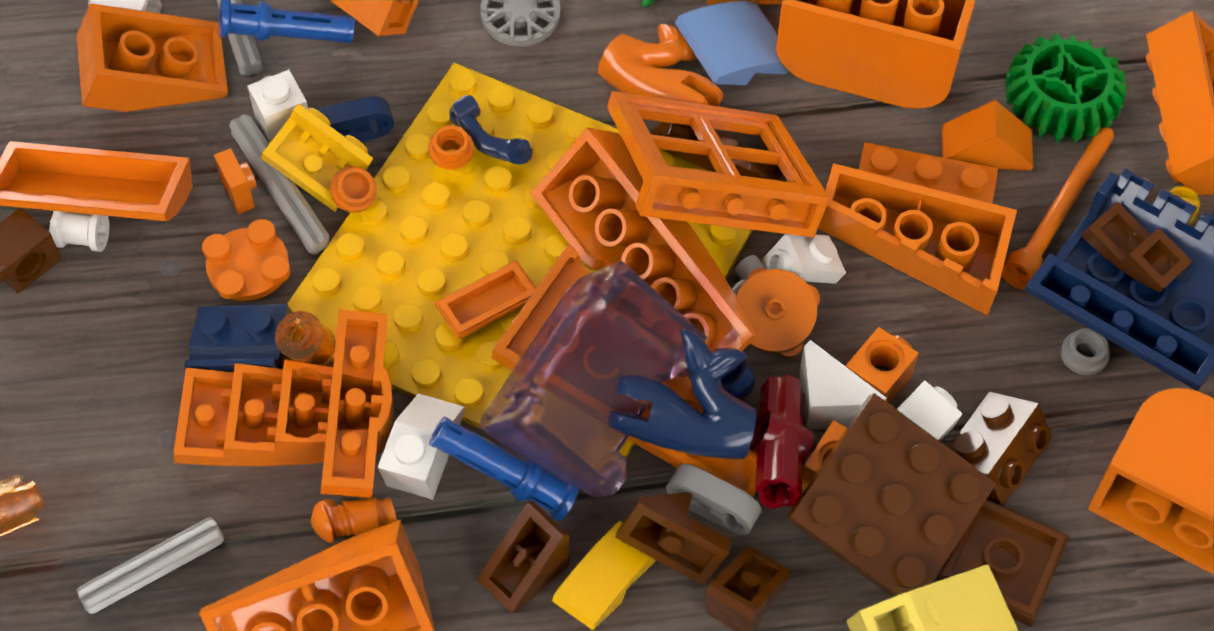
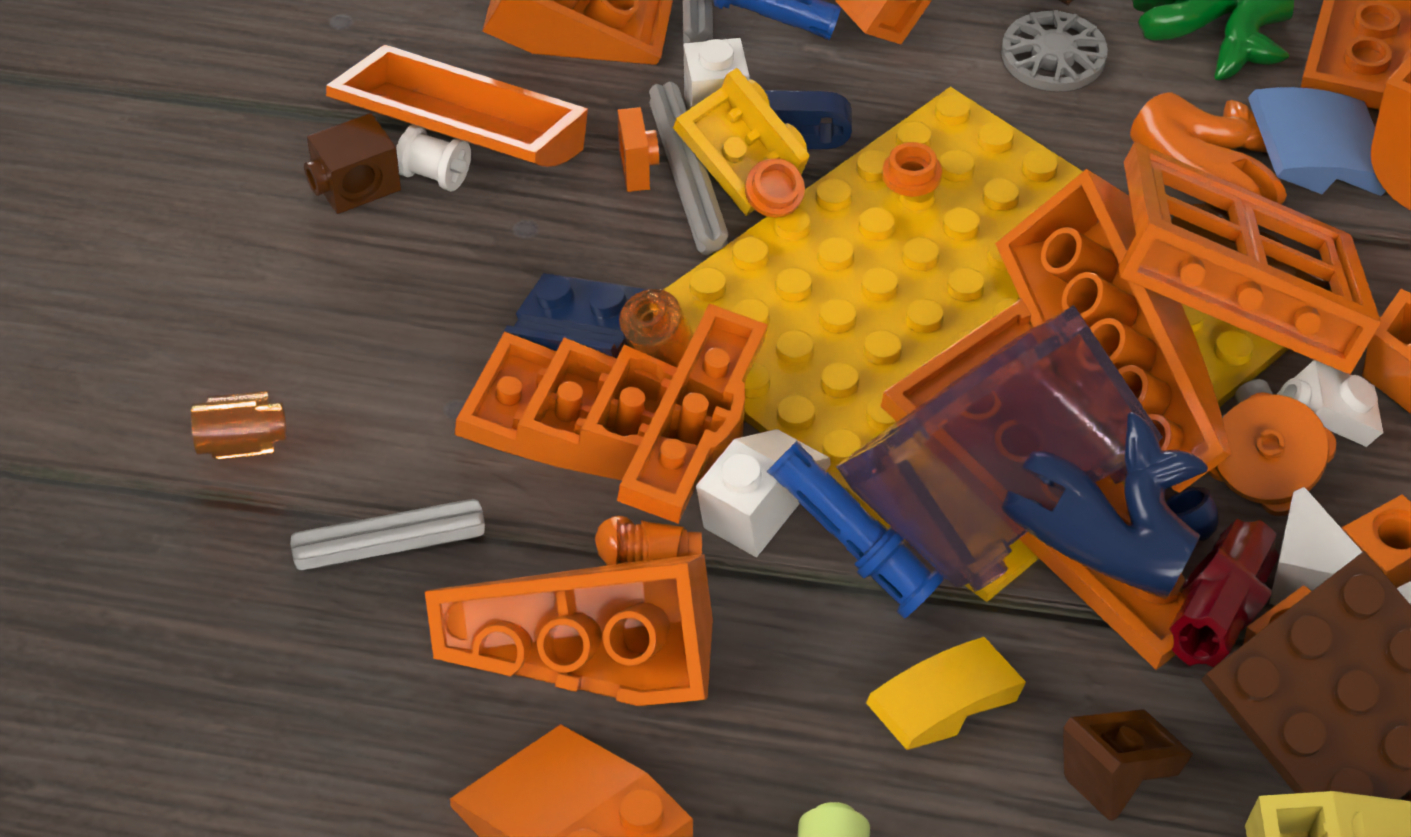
camera: 20 degrees right, 10 degrees down
(246, 261) = (618, 239): orange piece -> none
(464, 115) = (943, 137): dark blue piece -> none
(486, 300) = (894, 346): orange tile -> none
(526, 558) = (851, 644): reddish brown slope -> none
(665, 533) = (1038, 659): reddish brown slope -> none
(716, 499) = (1116, 643): light grey beam -> none

